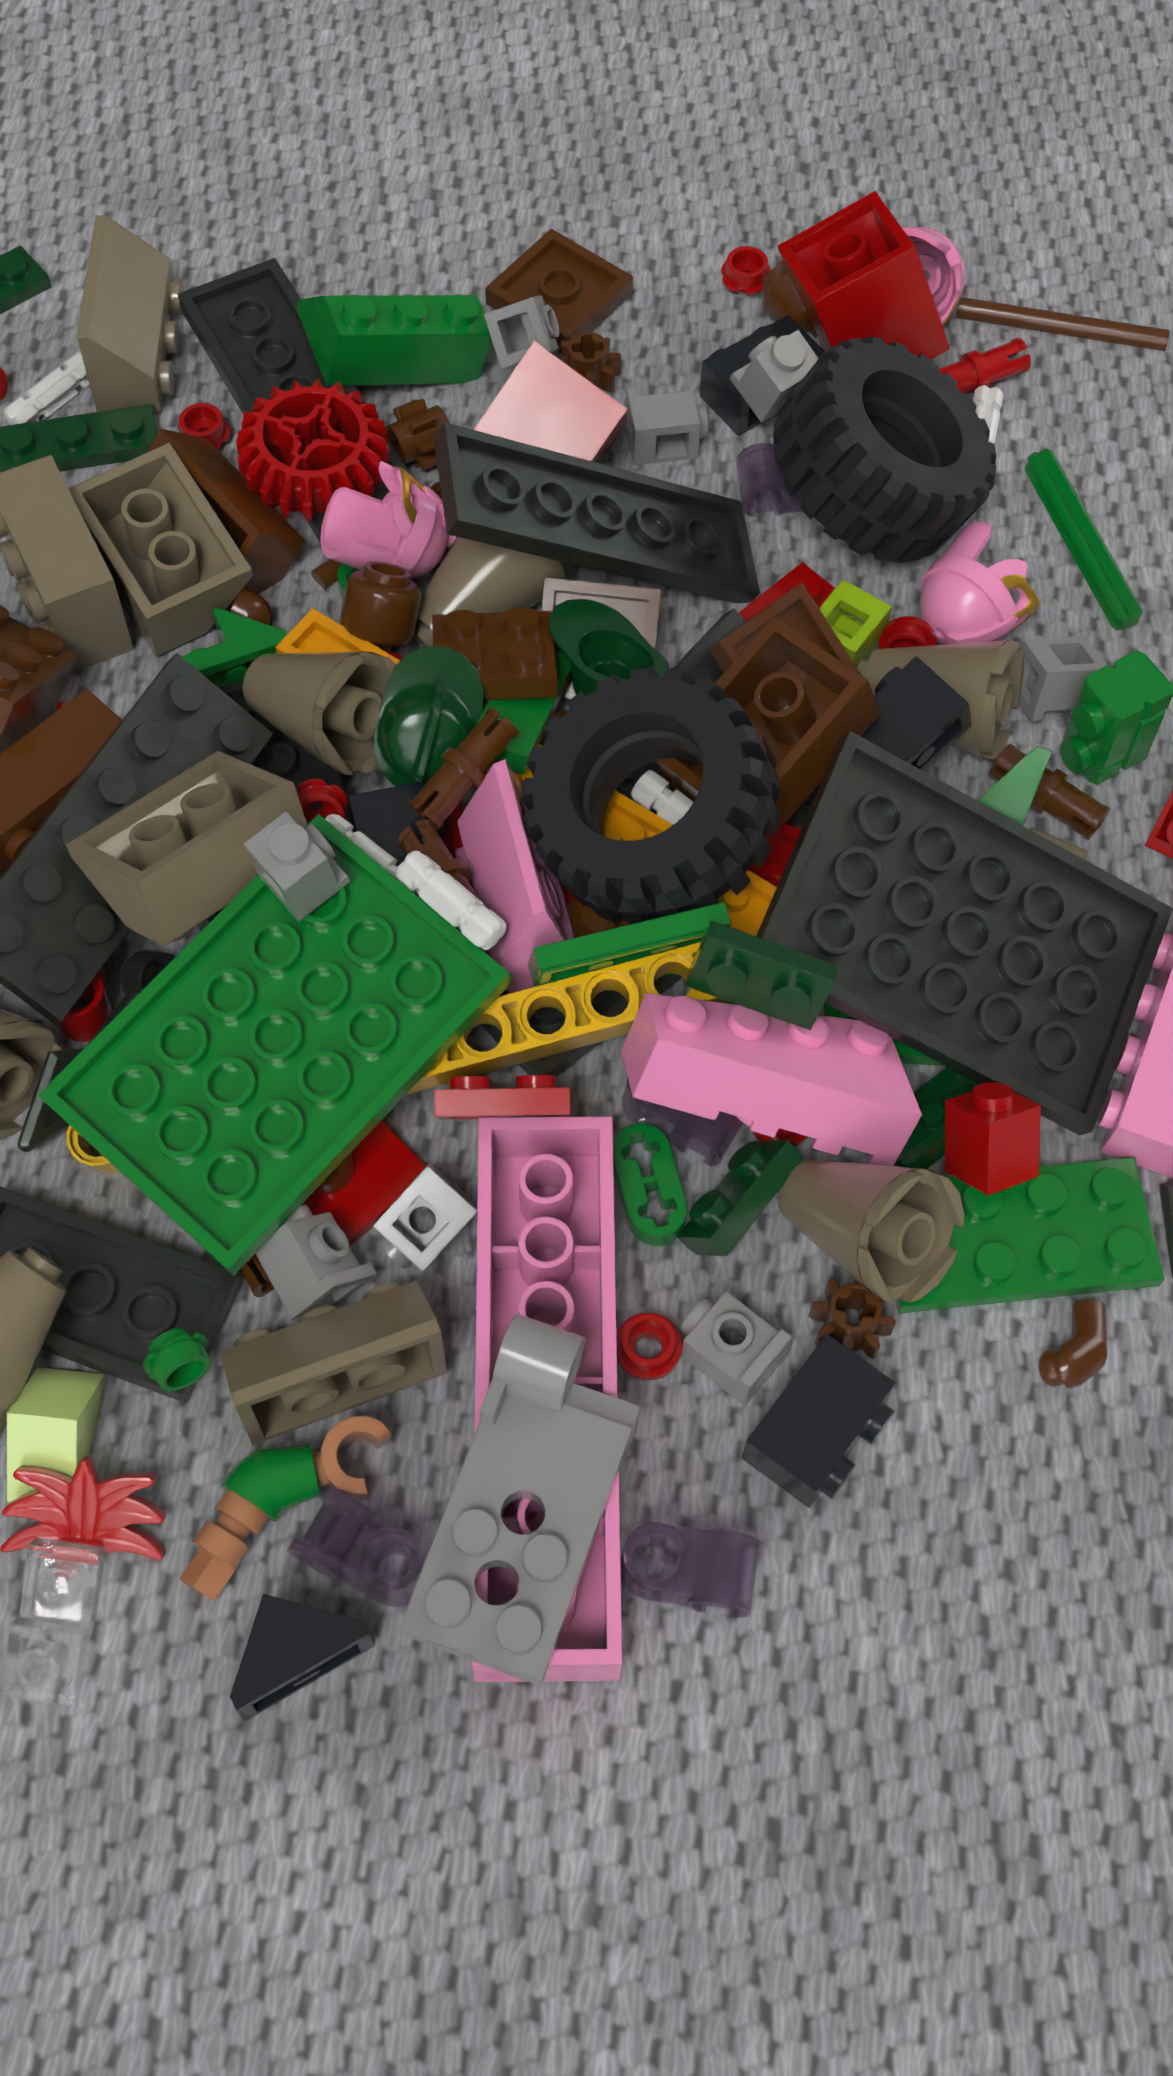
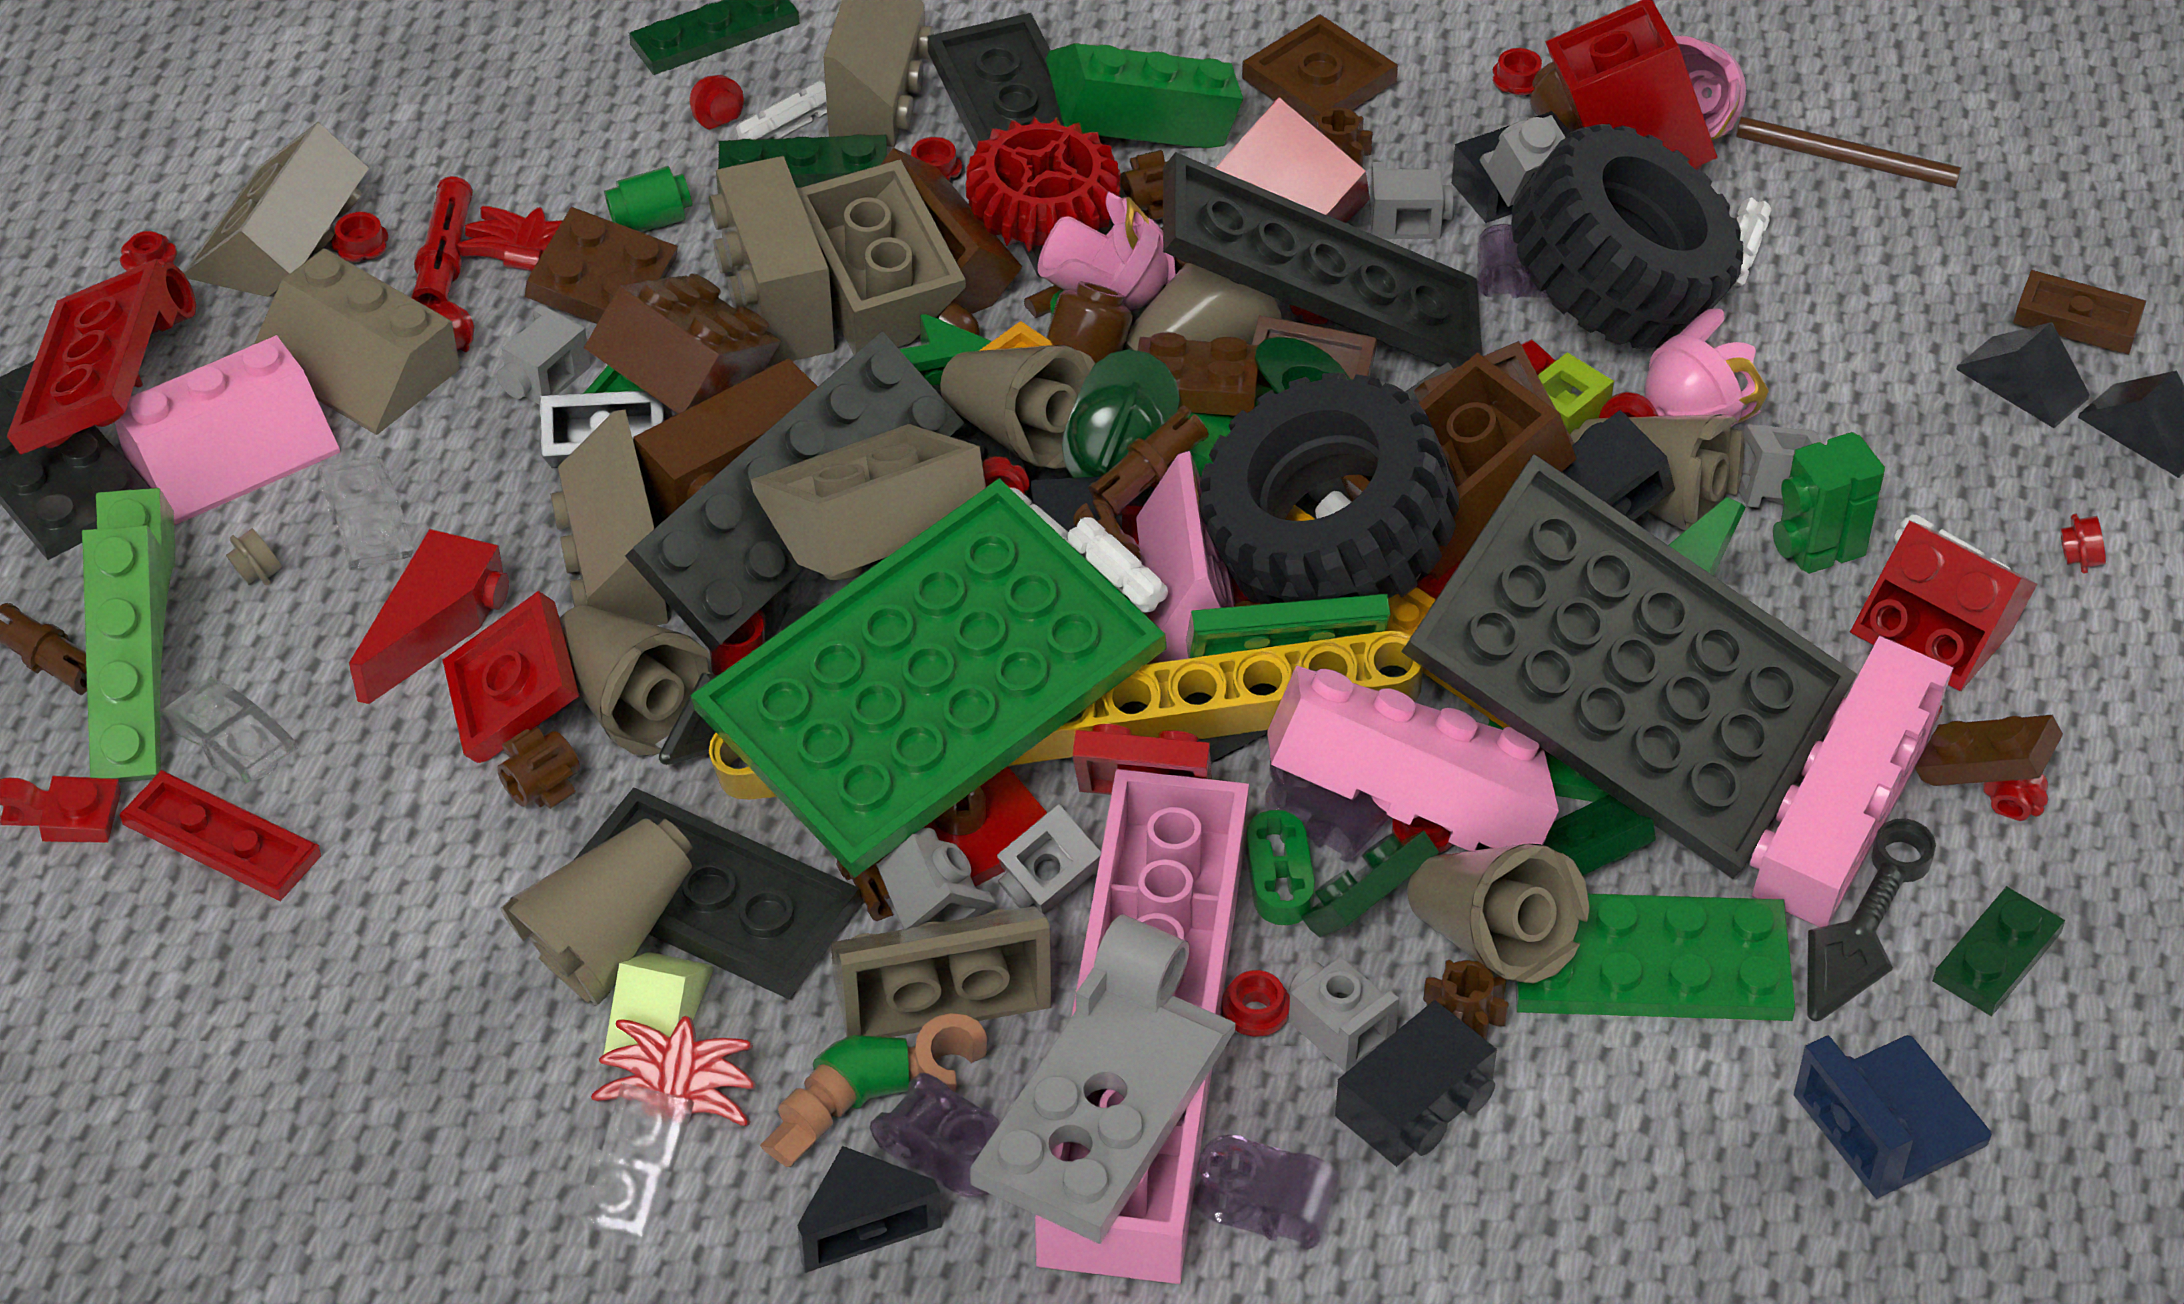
camera: 10 degrees right, 15 degrees down
(177, 1359) = (789, 945): green plate -> none
(296, 865) = (970, 511): light grey brick -> none
(518, 326) = (1269, 85): light grey brick -> none
(761, 975) = (1412, 660): dark green plate -> none
(988, 367) = (1759, 181): red pin -> none
(992, 1138) = (1633, 852): red brick -> none
(1057, 796) = (1757, 571): reddish brown pin -> none
(1083, 540) = (1833, 350): green axle -> none
(1083, 1353) = (1698, 1064): reddish brown arm -> none

